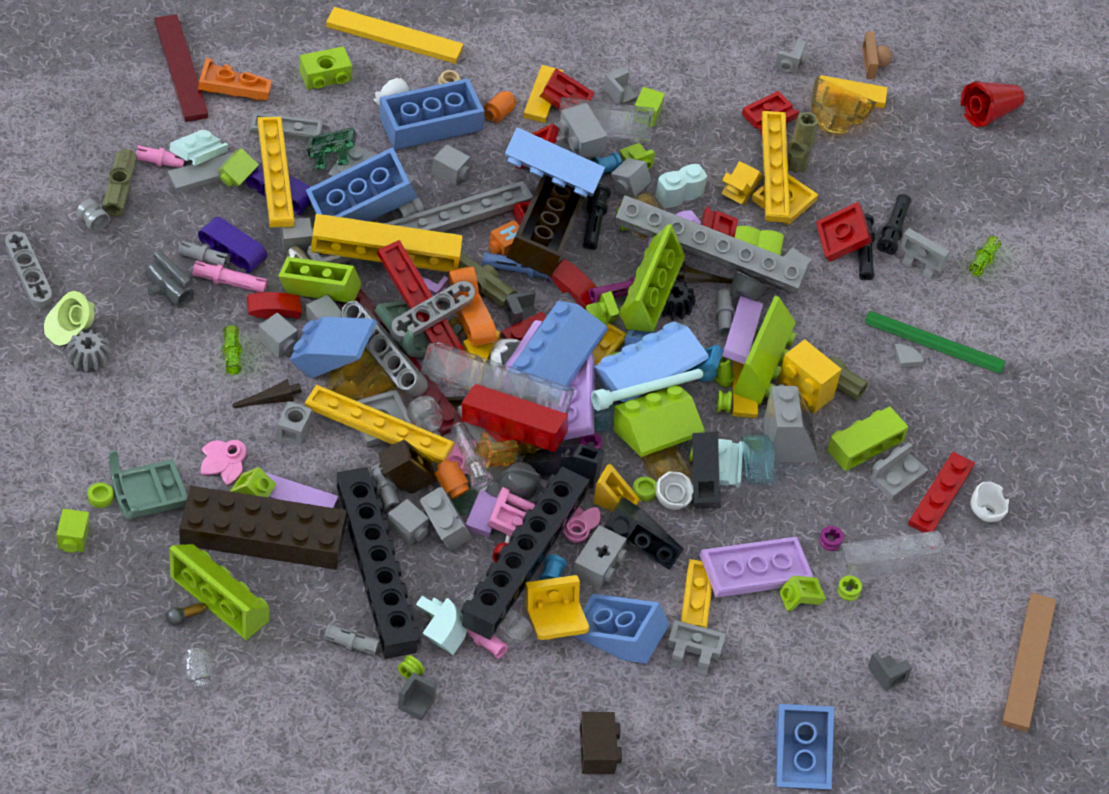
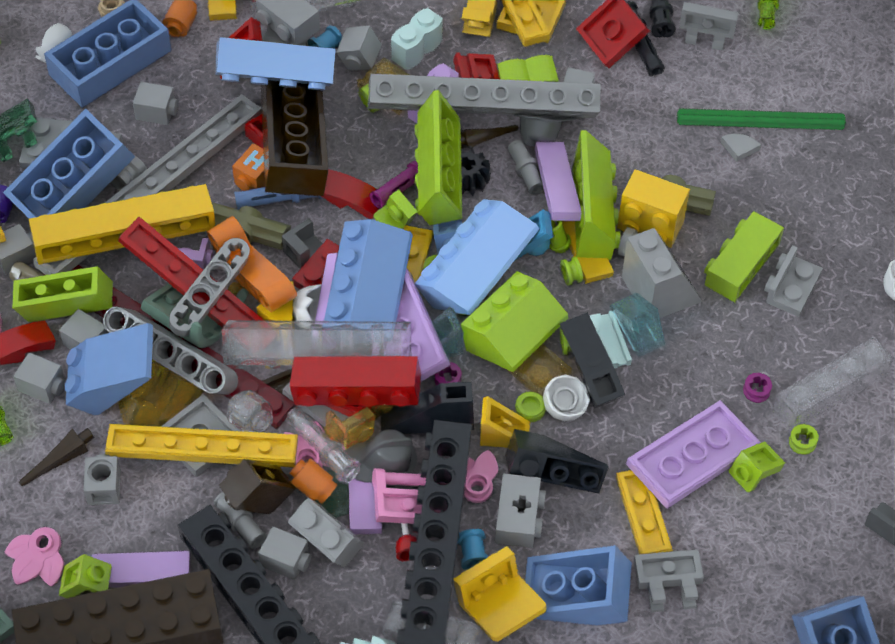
camera: 15 degrees left, 5 degrees up
(597, 208) = (336, 97): black pin -> none
(603, 398) = (446, 320): light aqua piece -> none
(638, 153) = (353, 18): lime bracket -> none
(941, 493) = (848, 290): red plate -> none

